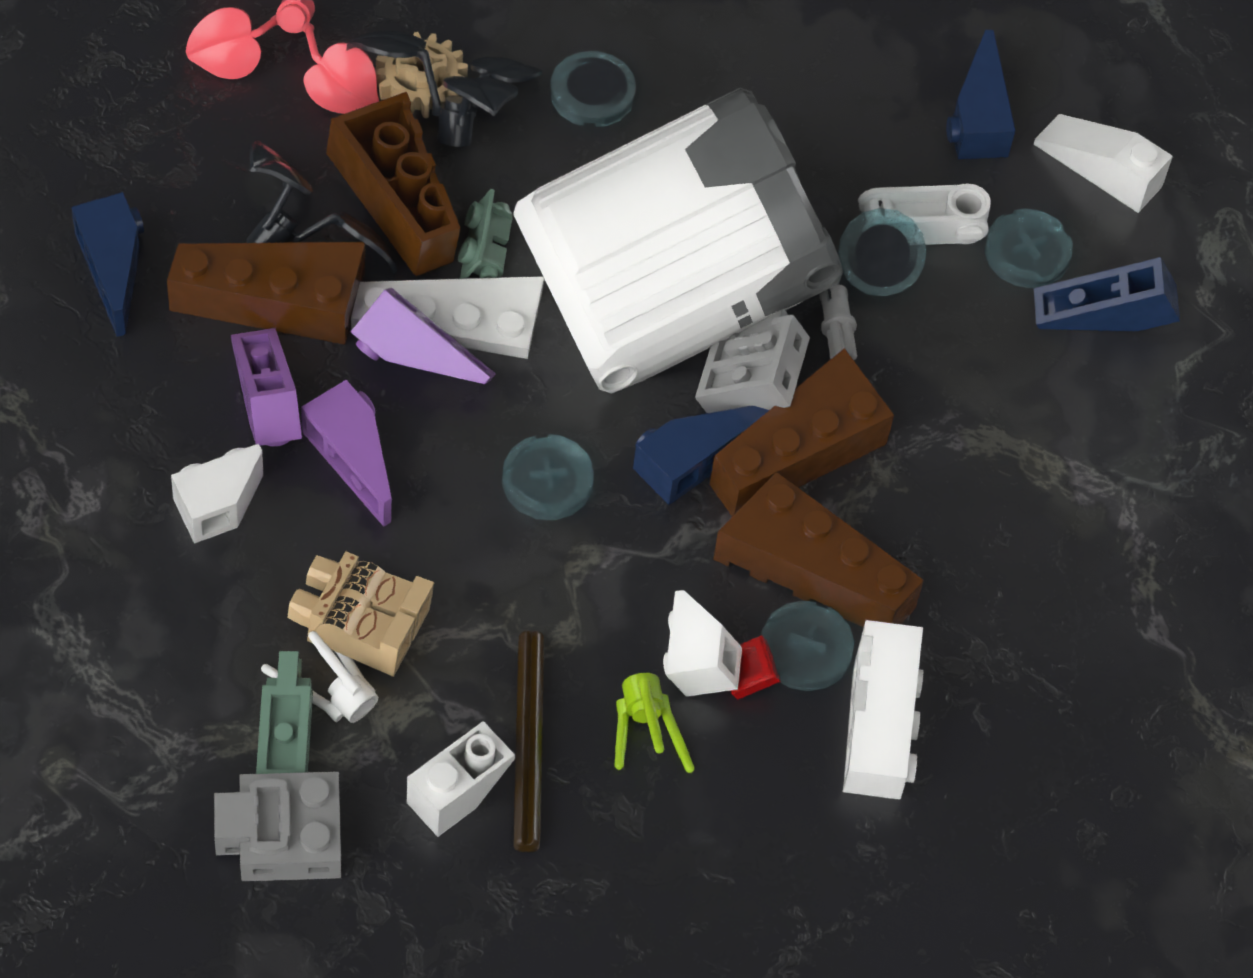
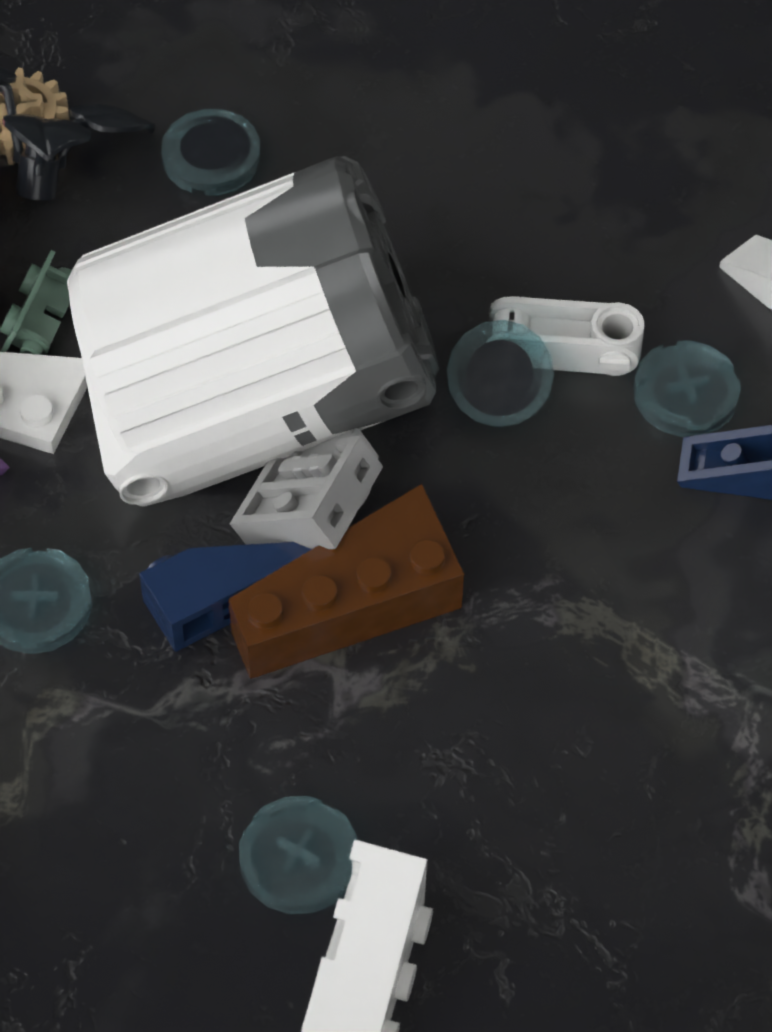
camera: 15 degrees right, 0 degrees up
(645, 704) = (68, 906): lime plant -> none
(700, 650) = (156, 844): white slope -> none
(756, 668) = (216, 875): red tile -> none
(817, 555) = (329, 737): reddish brown wedge -> none
(838, 322) = (431, 453): light grey axle -> none
(982, 114) = (659, 221): dark blue slope -> none

